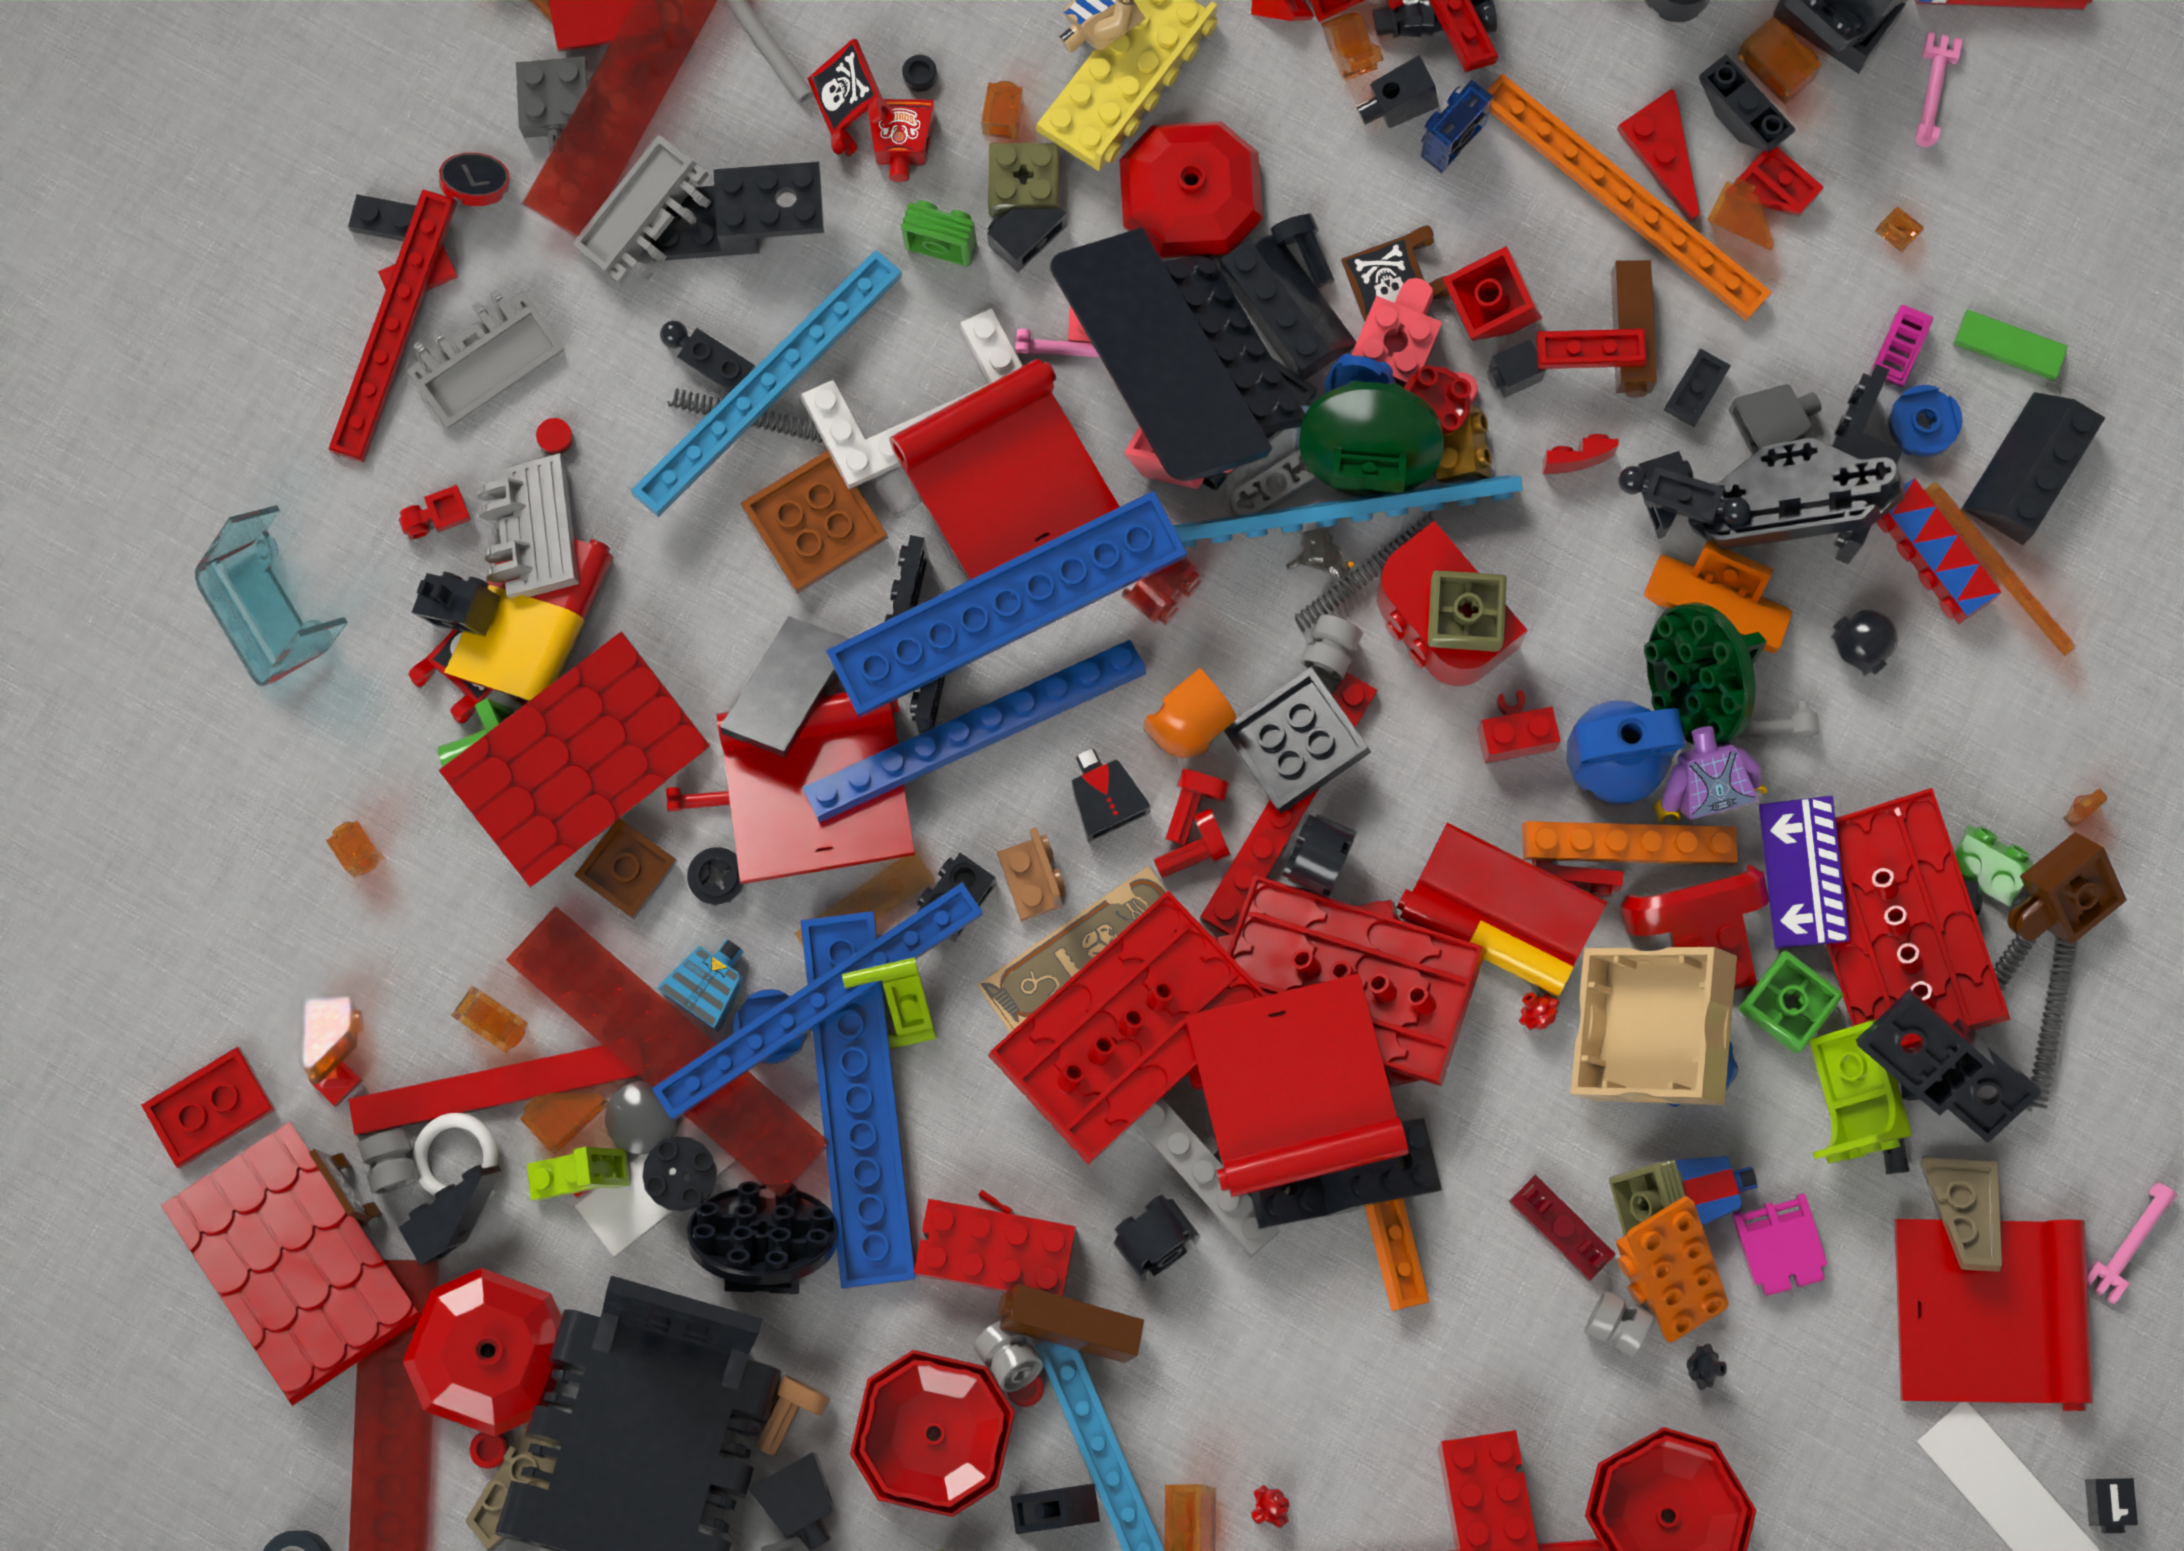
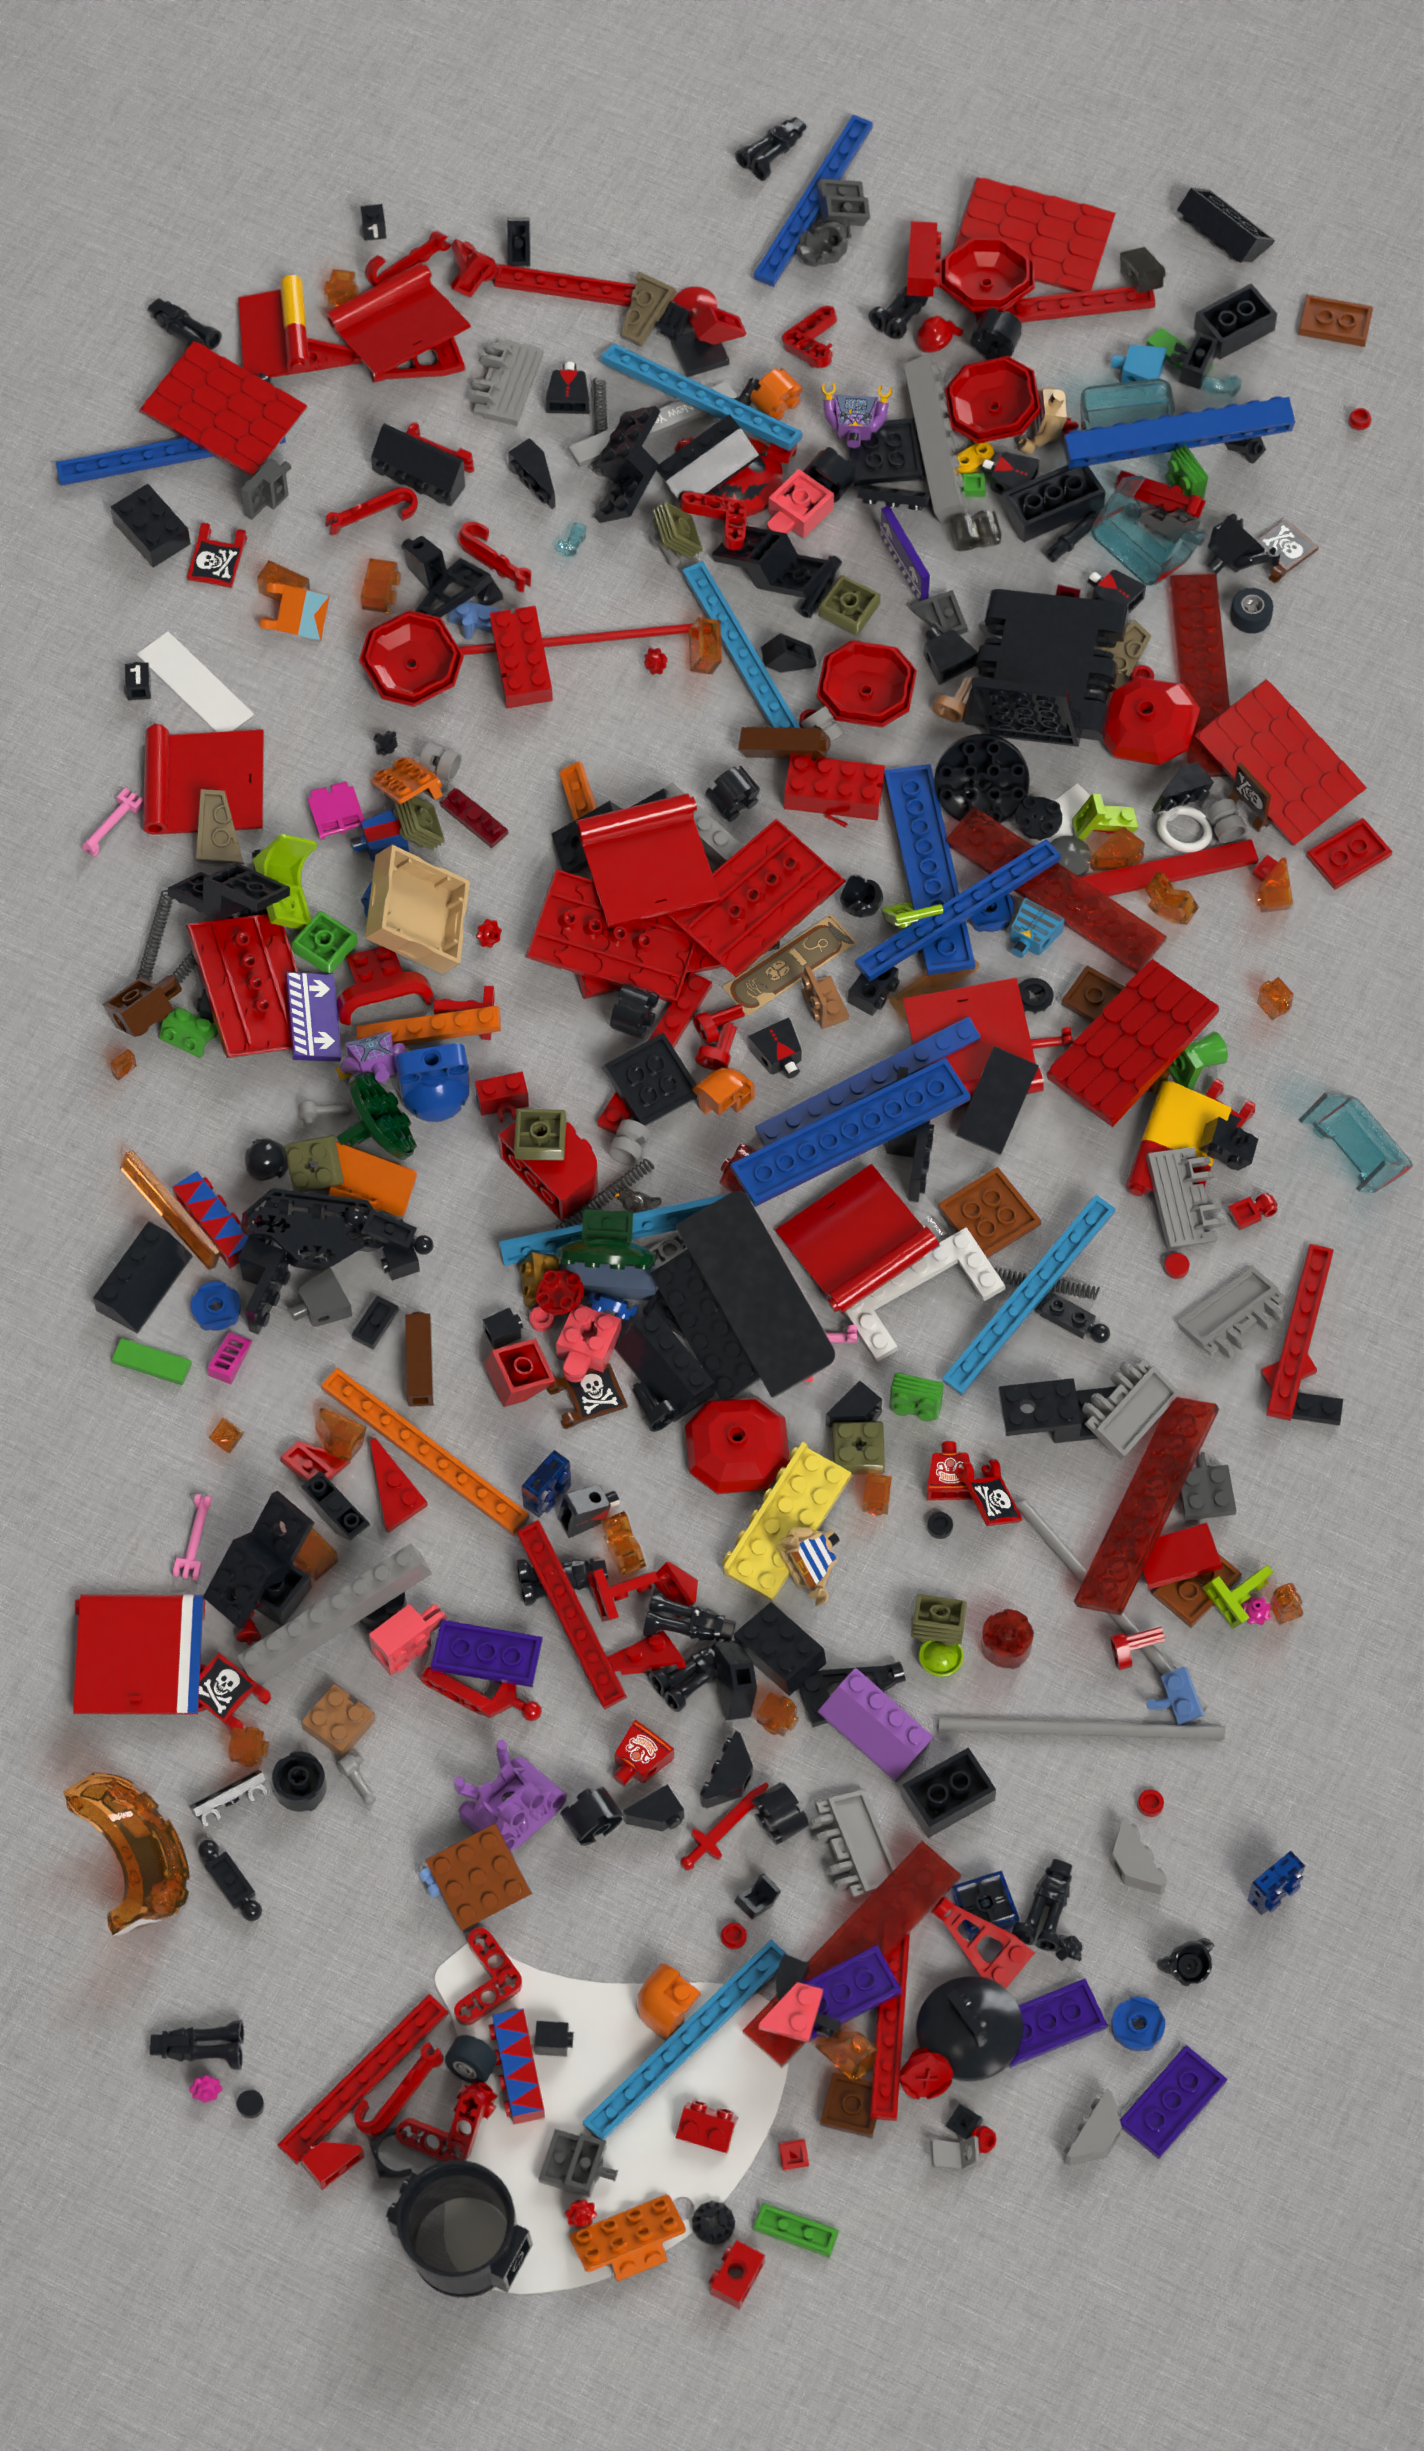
camera: 175 degrees right, 15 degrees down
(474, 179) = (1255, 1429): tile -> none
(965, 1043) = (861, 896): none -> black cap
(1508, 906) = (516, 981): red door -> none
(1590, 452) = (449, 1275): red slope -> none
(1591, 348) = (451, 1331): red tile -> none
(1795, 618) = (319, 1150): none -> olive brick

